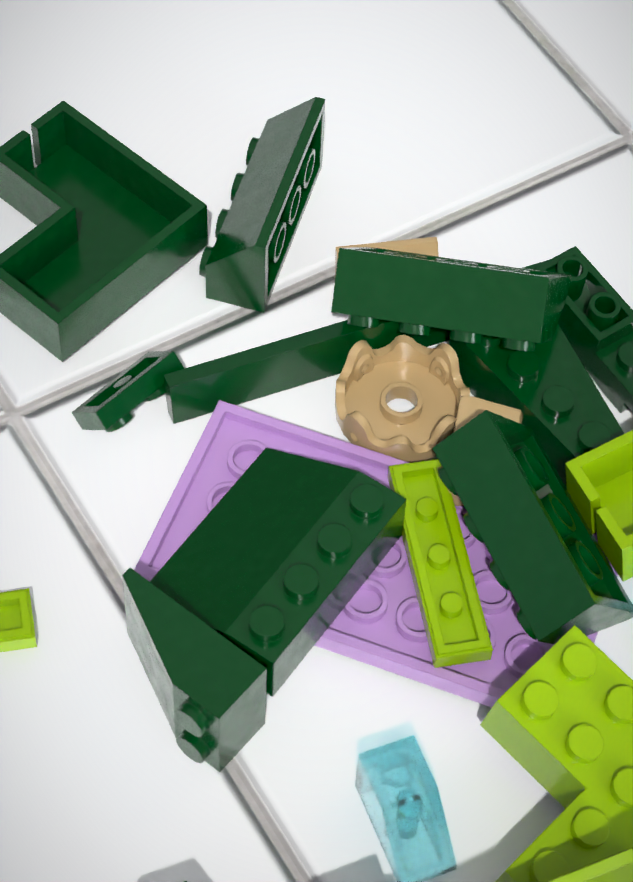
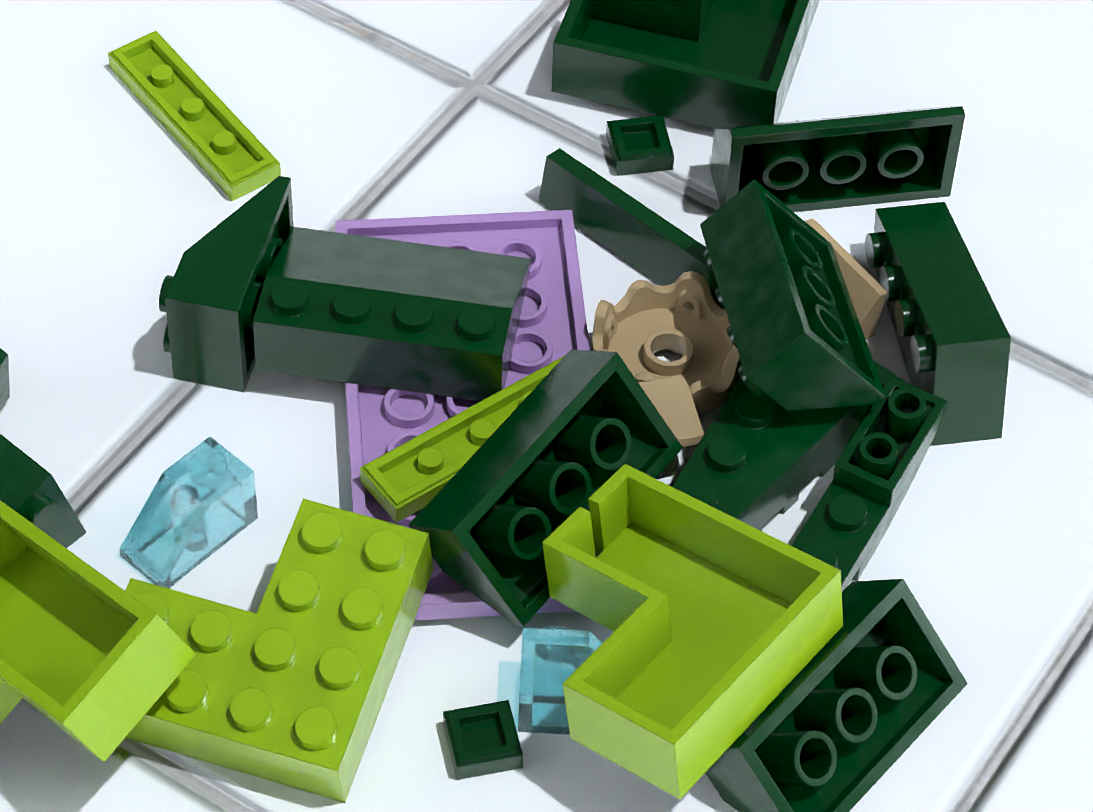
camera: 65 degrees right, 5 degrees down
(140, 382) = (515, 140): dark green plate -> none
(158, 328) = (639, 145): none -> dark green tile
(471, 212) = (942, 318): none -> dark green wedge

